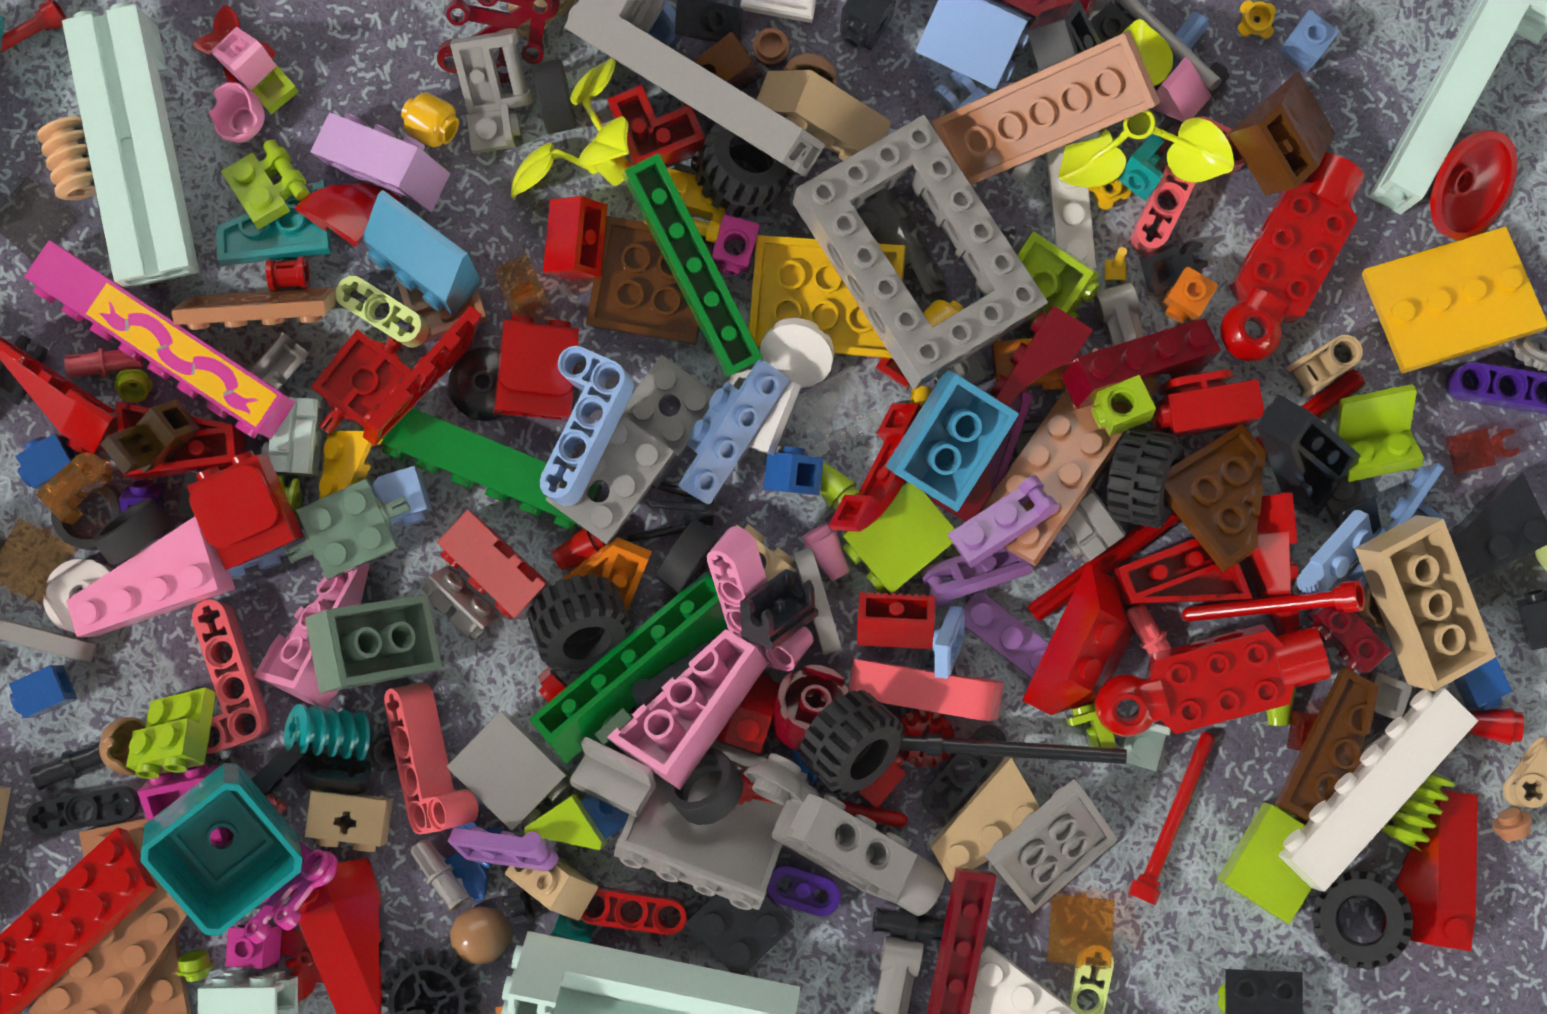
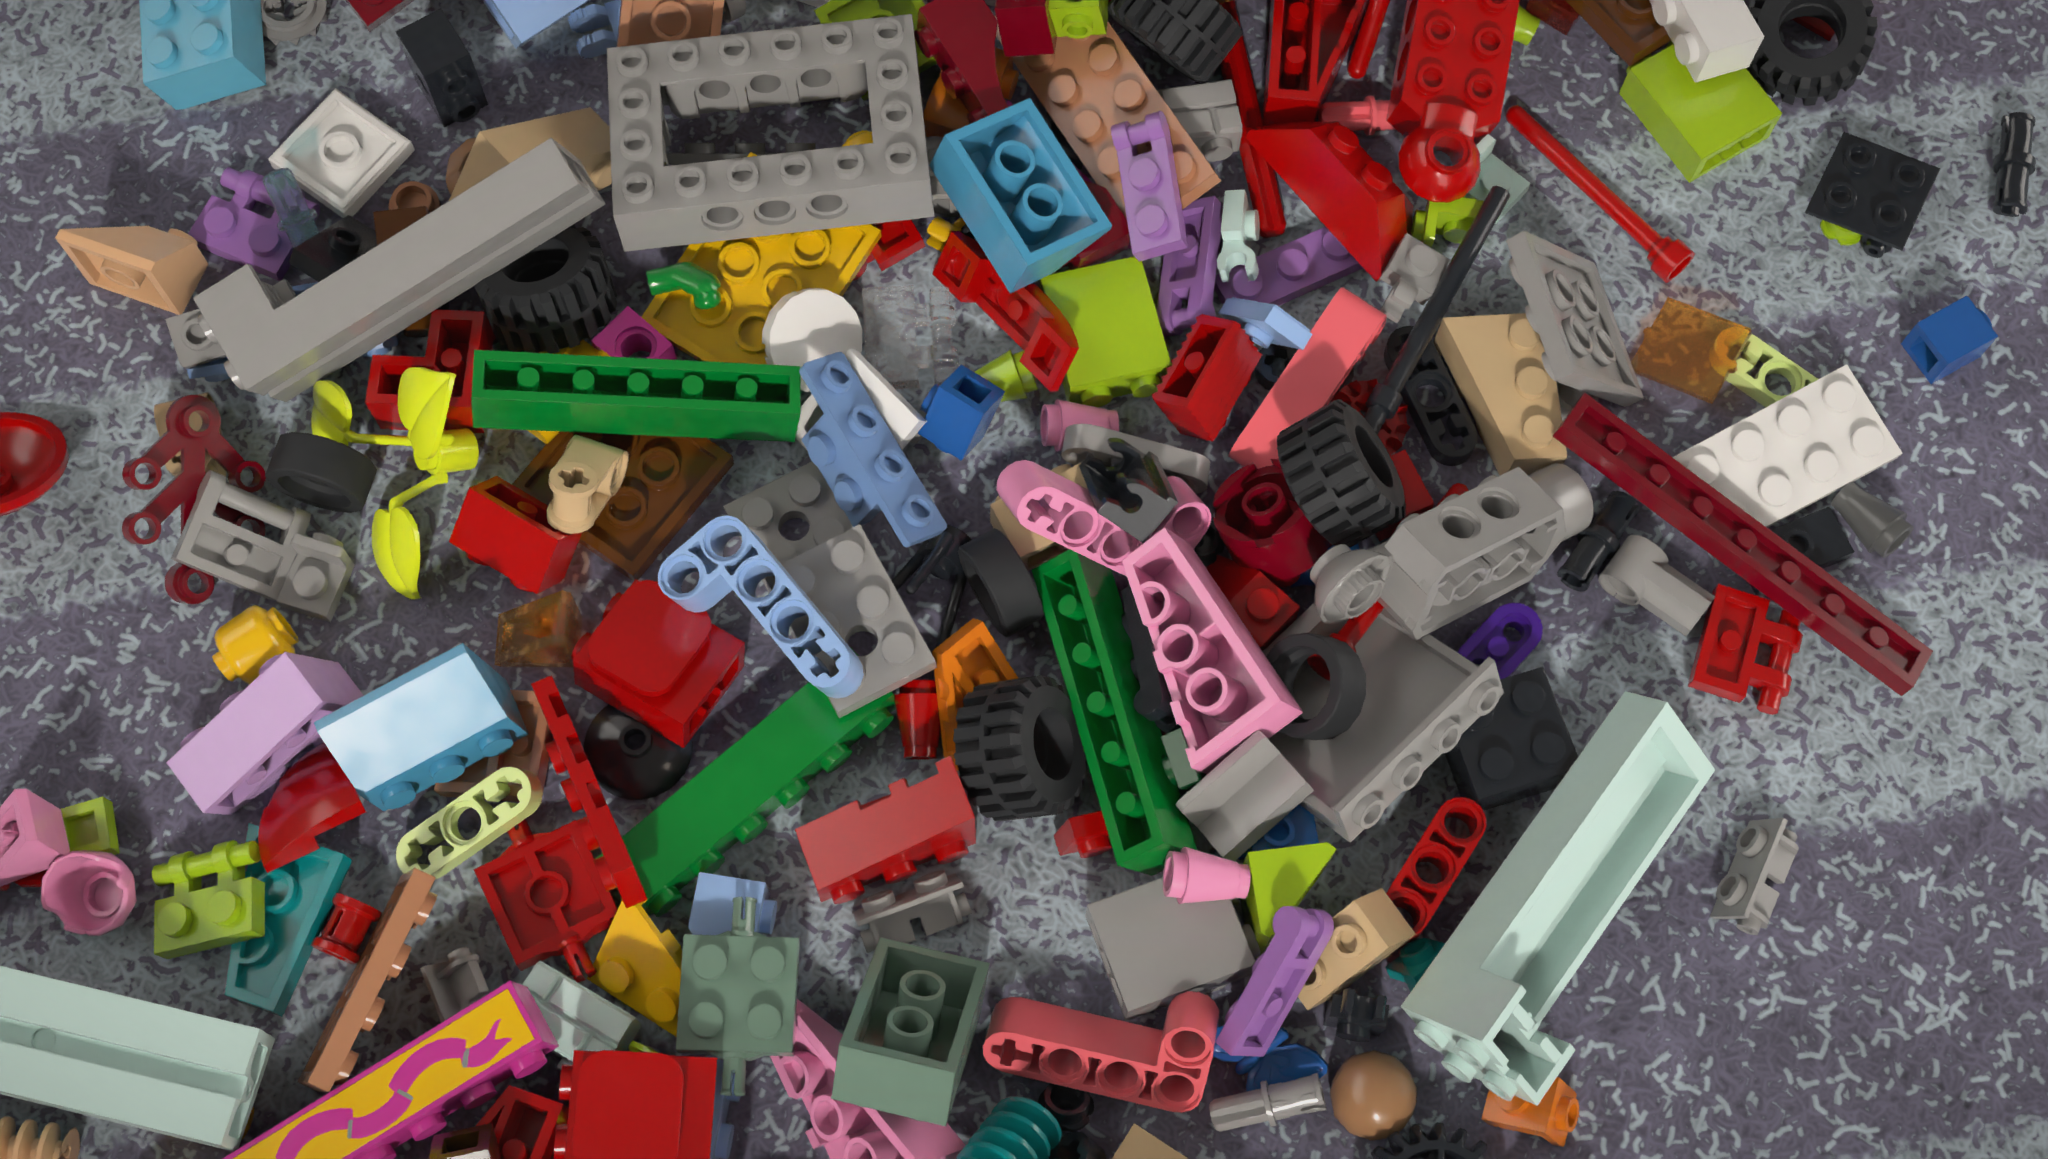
camera: 70 degrees left, 15 degrees down
(545, 776) = (1203, 877): none -> bright pink cone
(623, 263) = (584, 483): none -> tan piece
(796, 253) = (688, 277): none -> green arm
(1015, 591) = (1238, 230): none -> light aqua plate
(1035, 724) = (1413, 274): none -> light grey plate

